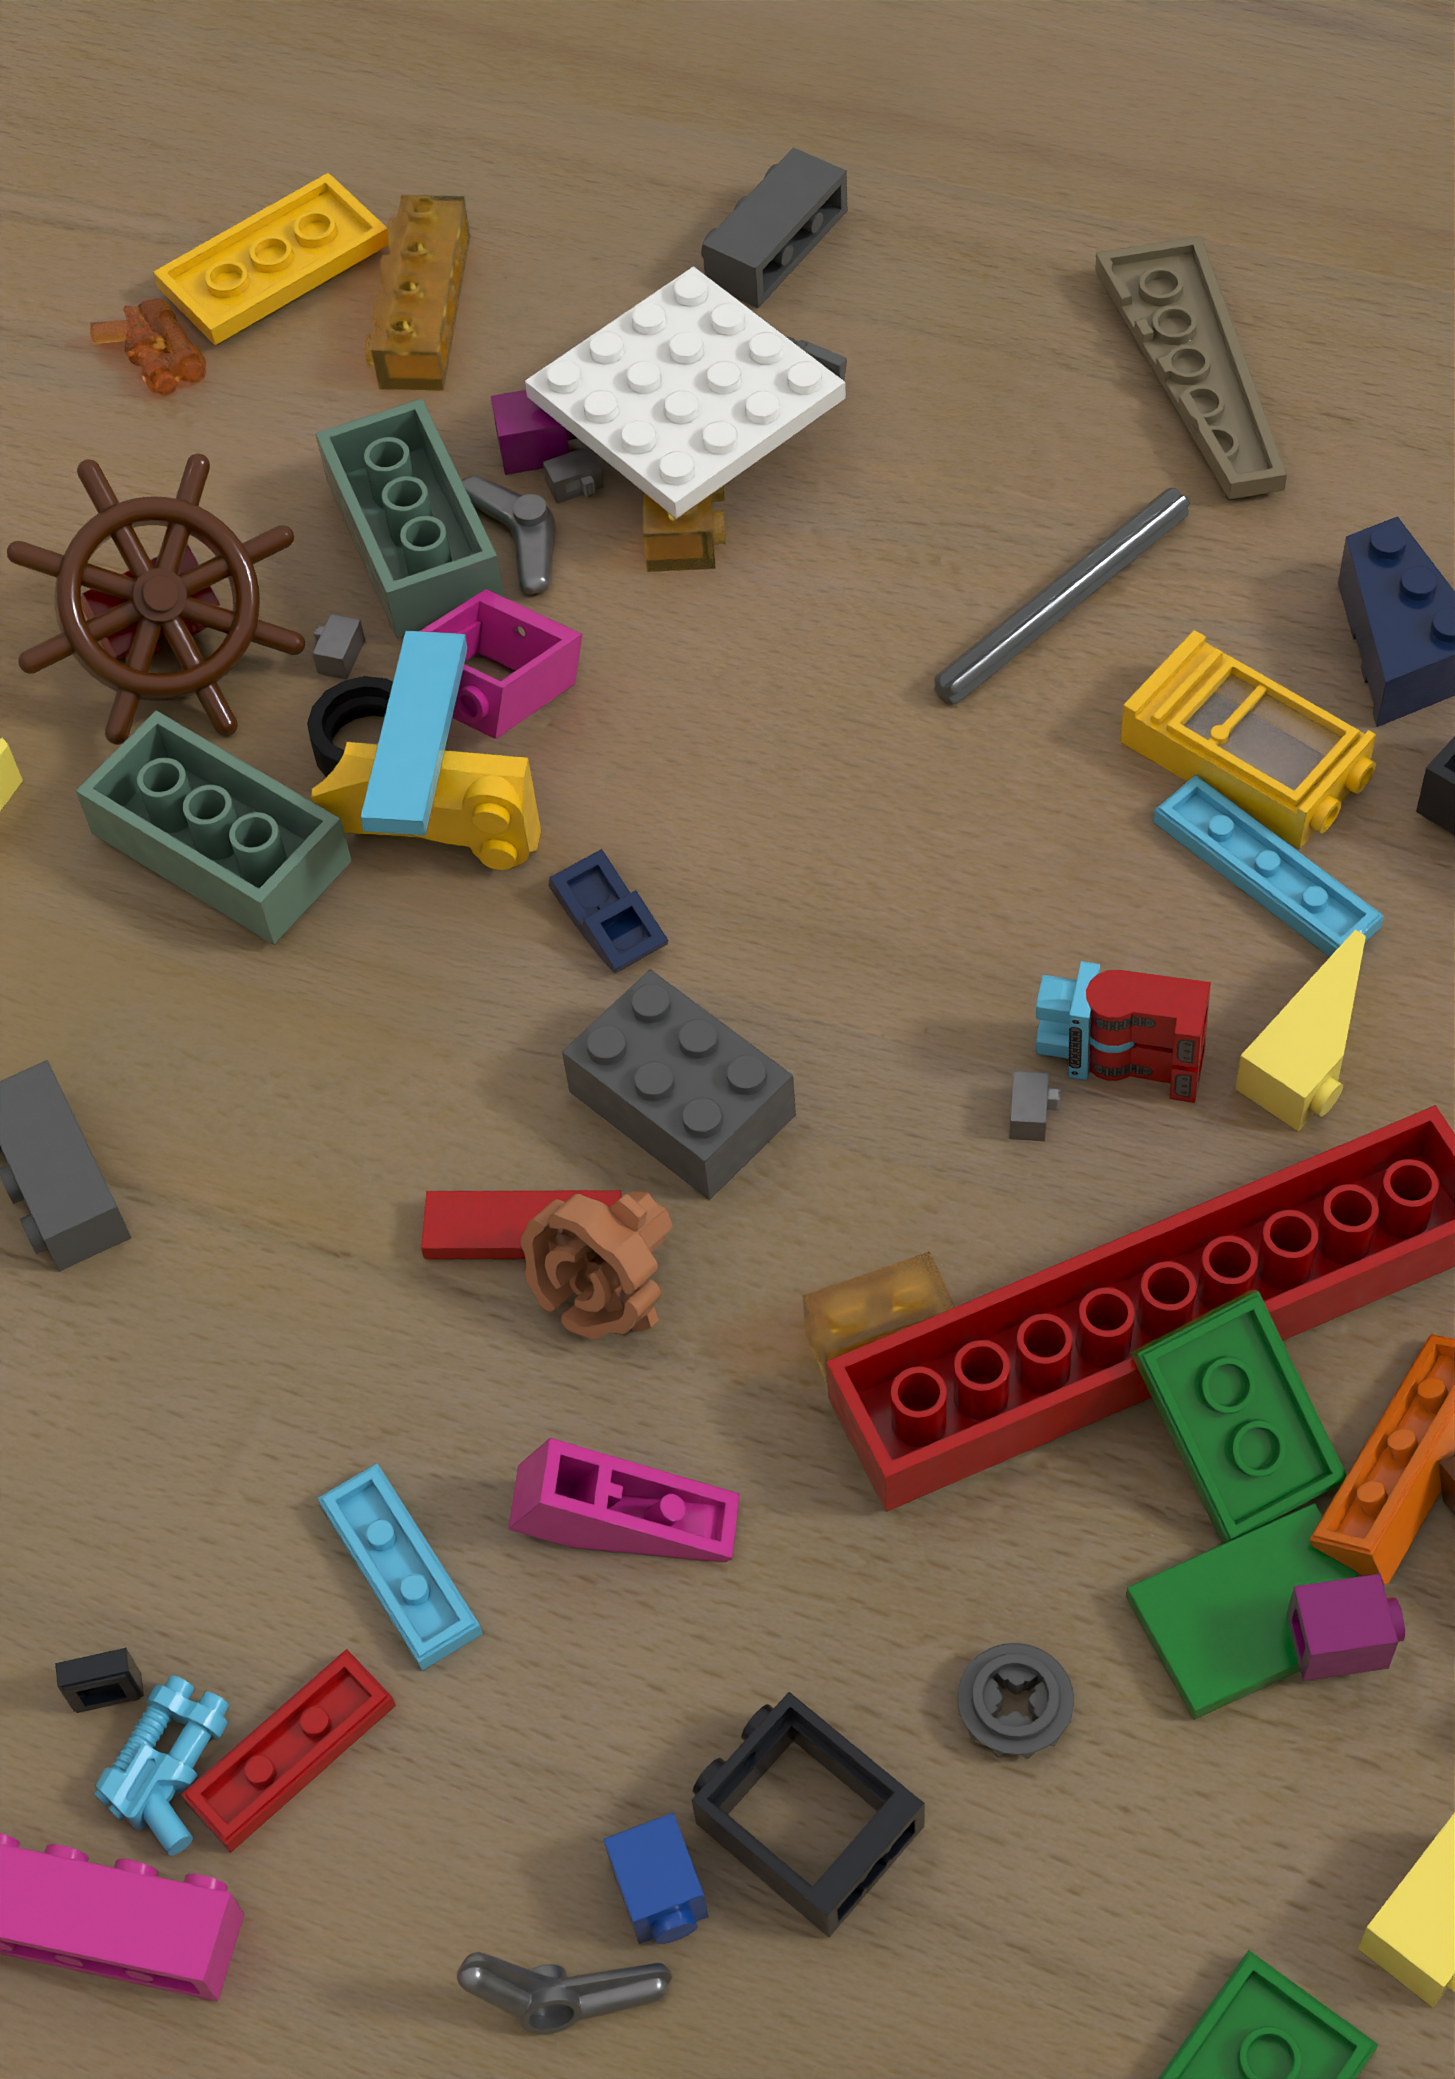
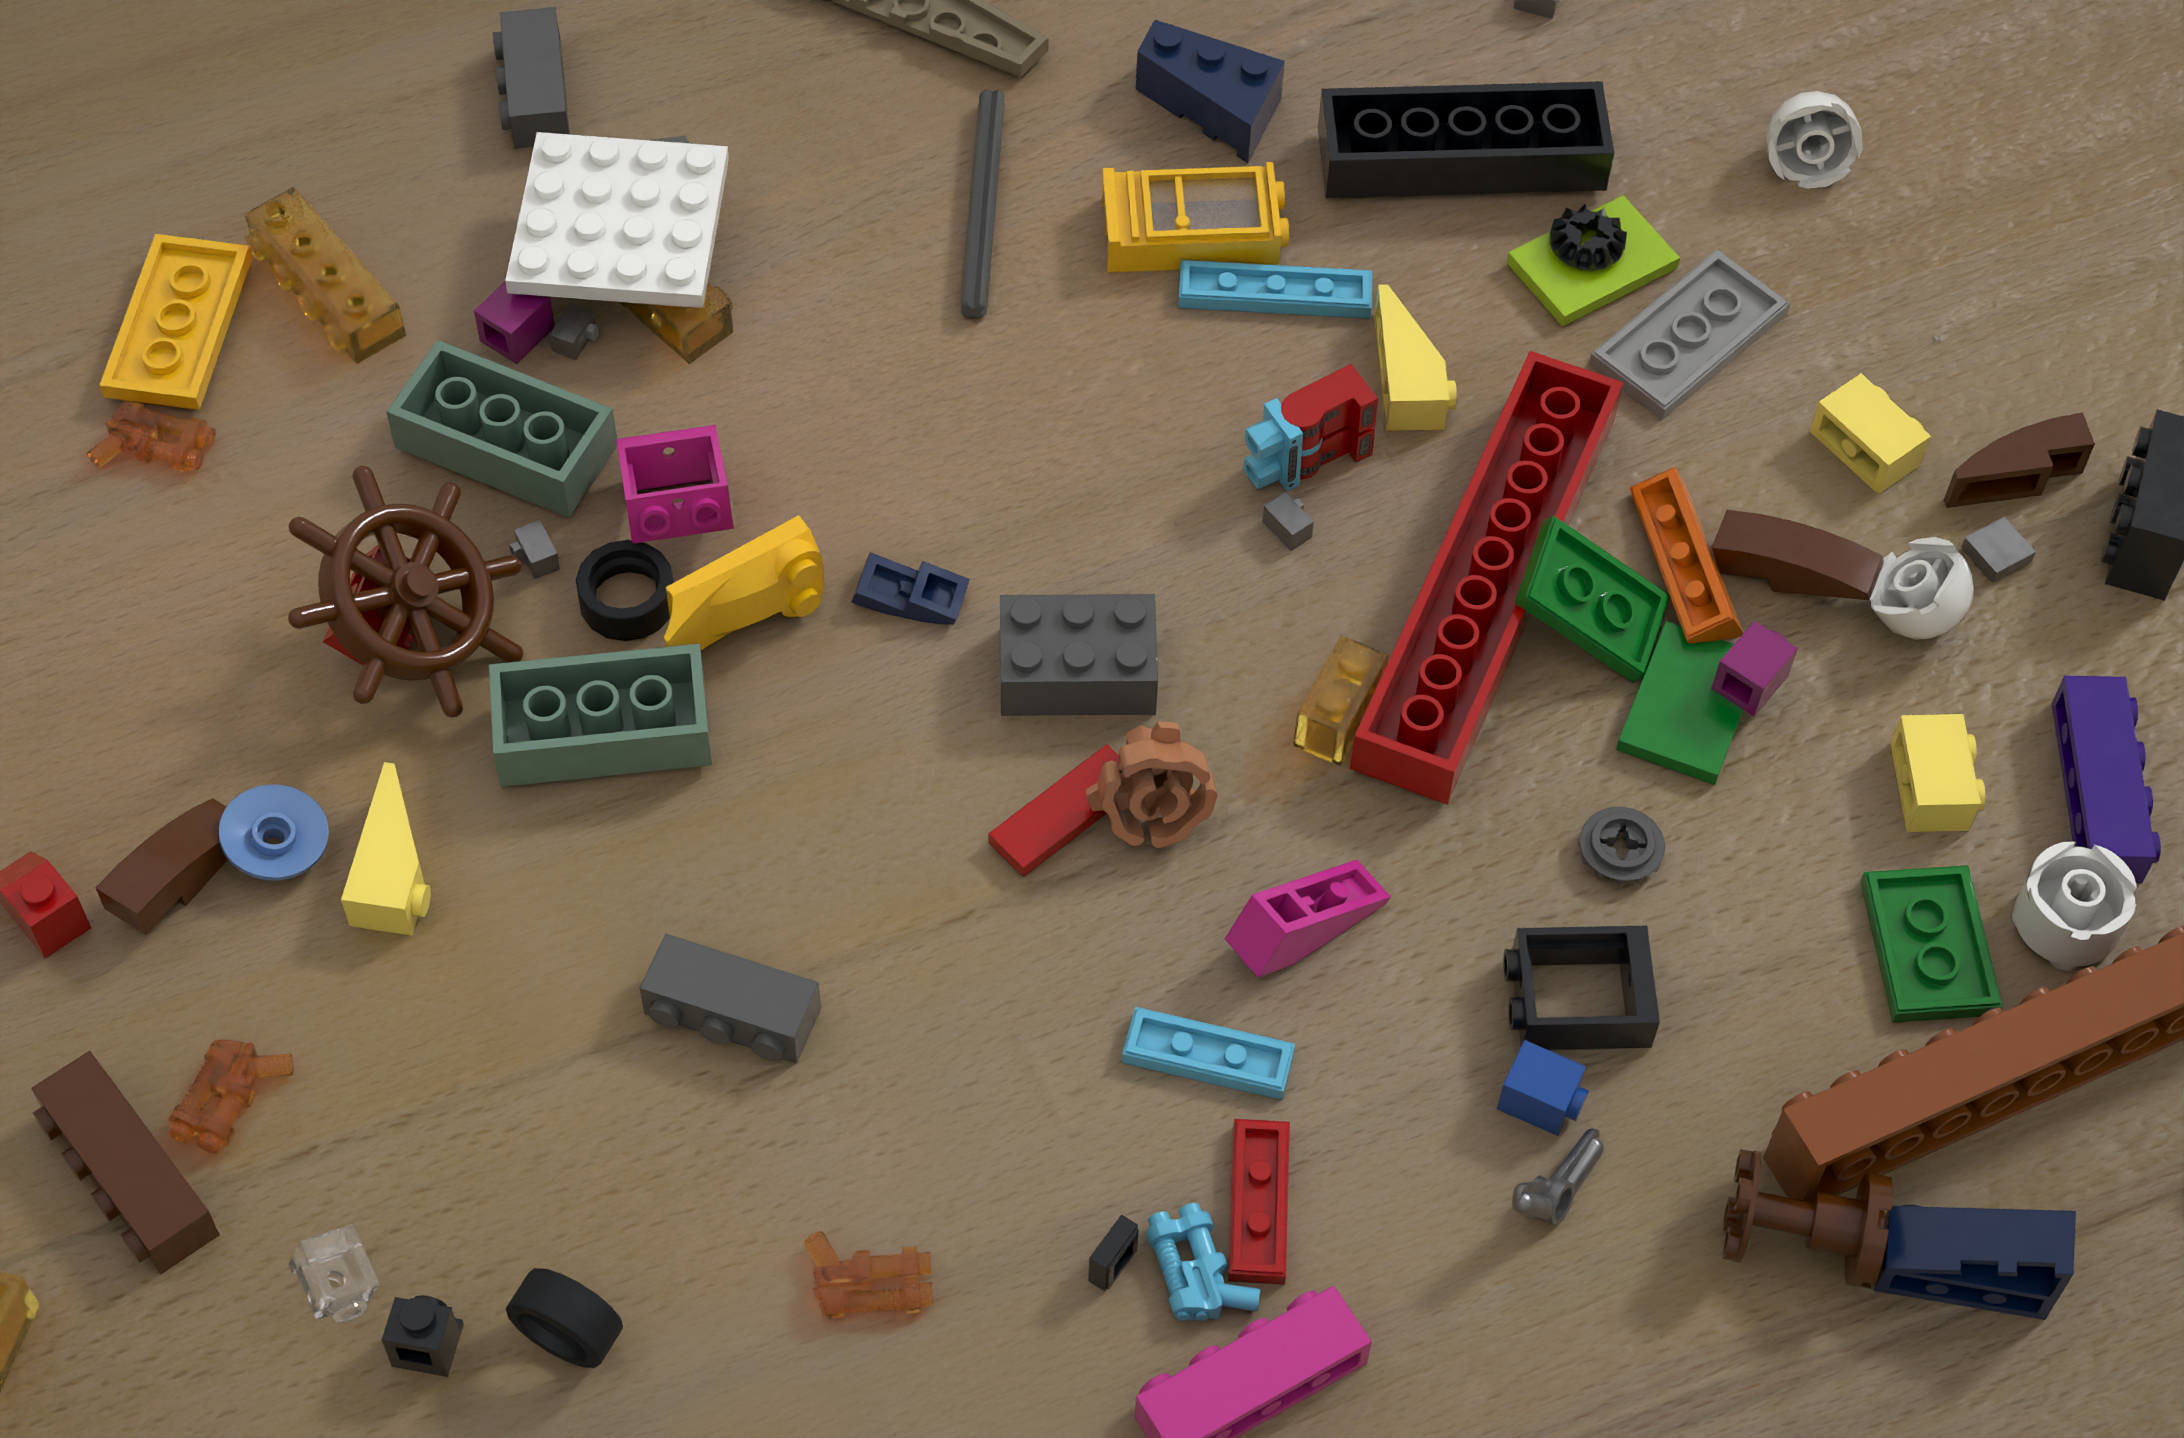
camera: 50 degrees left, 0 degrees up
(414, 733) = (711, 548): medium azure tile -> none
(530, 526) = (580, 379): flat silver piece -> none

